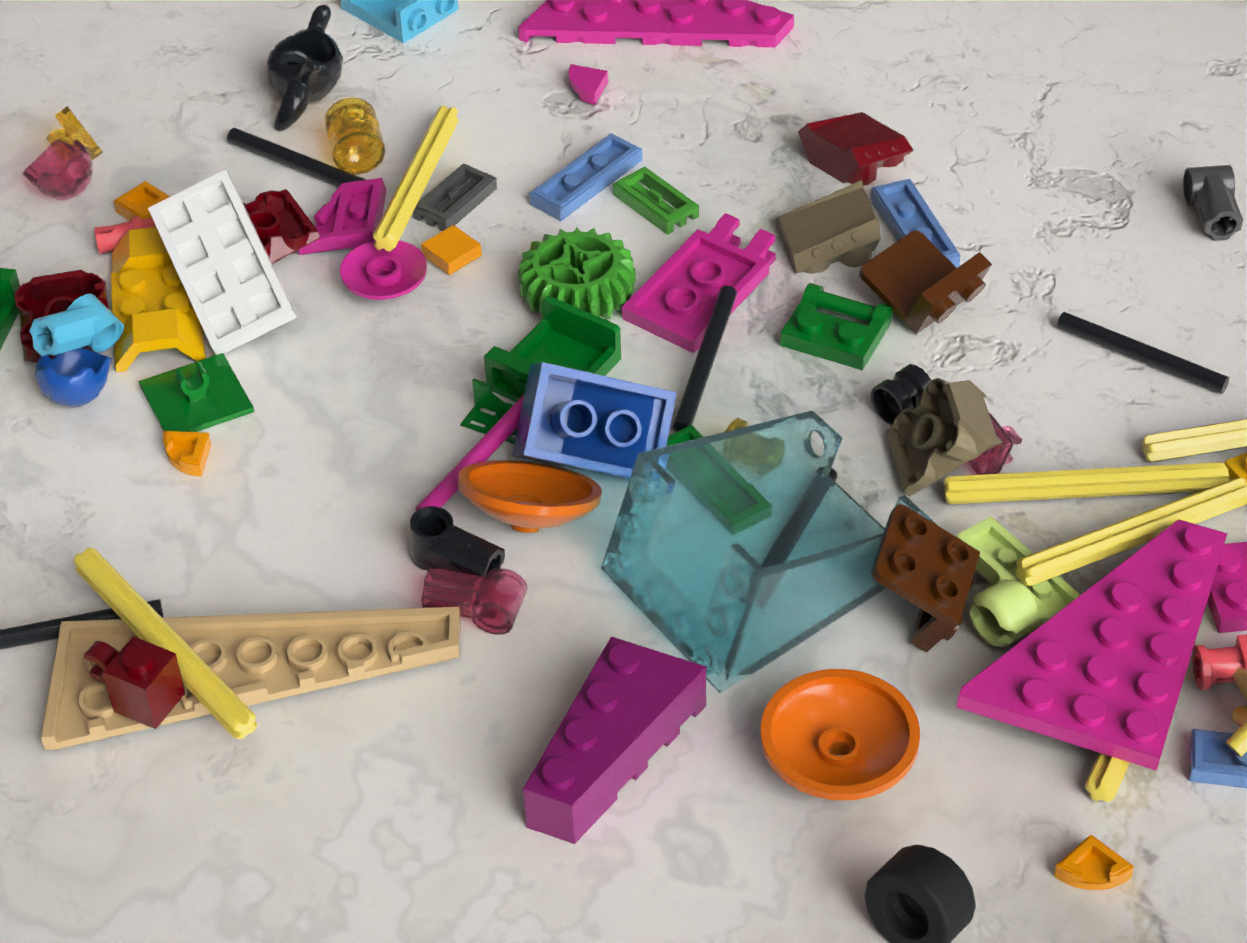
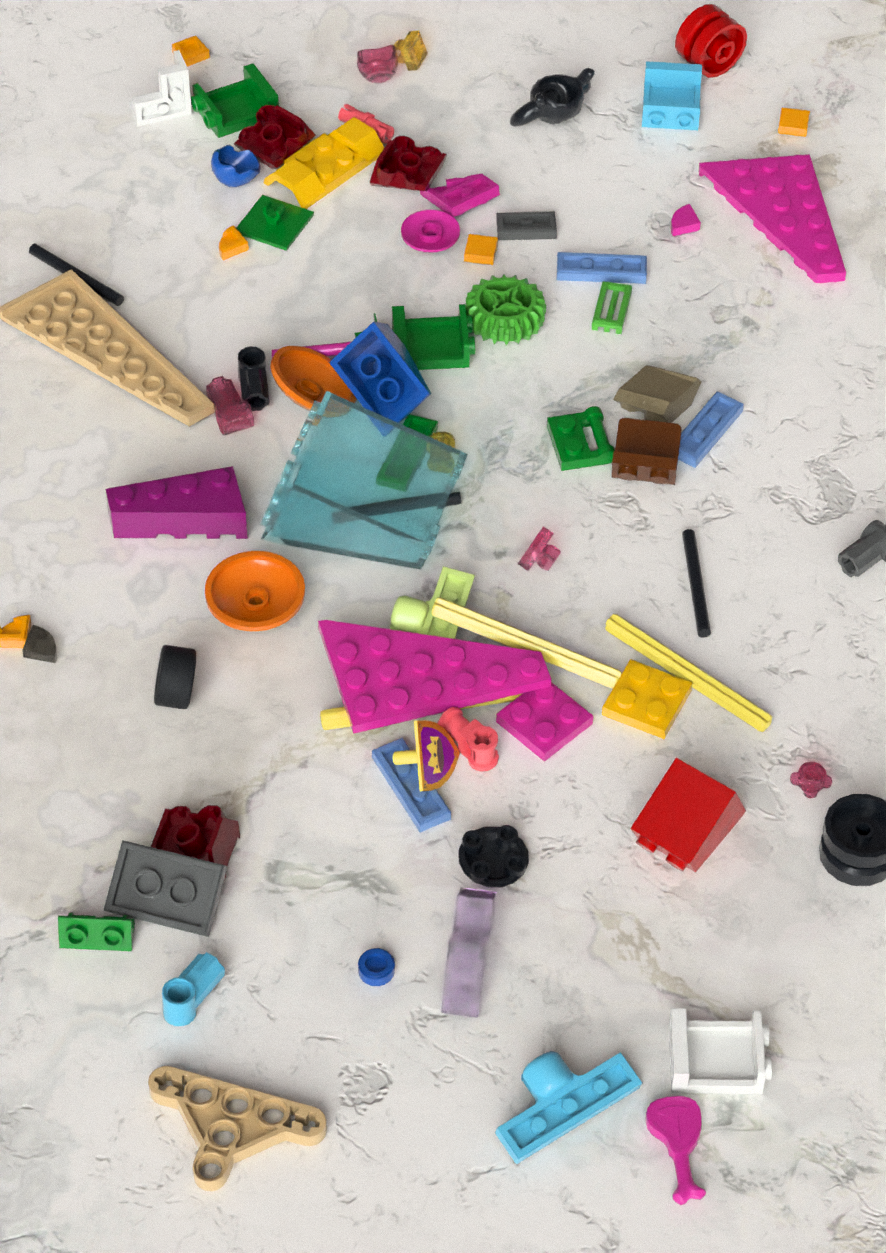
camera: 50 degrees right, 5 degrees up
(82, 324) = (264, 145): medium azure piece -> none
(138, 201) = (392, 111): light orange tile -> none
(140, 679) = (48, 315): dark red brick -> none
(151, 627) = (86, 311): light yellow axle -> none
(222, 263) = (356, 164): white plate -> none
(290, 158) = (489, 144): black bar -> none
(354, 136) = (523, 154): clear yellow wheel -> none
(415, 179) = (517, 198): light yellow axle -> none
(684, 289) = (558, 364): dark pink tile -> none
(705, 358) = (492, 397): black bar -> none
(853, 147) = (749, 364): dark red slope -> none
(901, 393) = (544, 493): black wheel -> none
(928, 571) = (393, 563): reddish brown bracket -> none
(940, 433) = (520, 522): dark tan slope -> none
(1084, 483) = (554, 608): light yellow axle -> none
(1093, 866) = (272, 742): light orange tile -> none

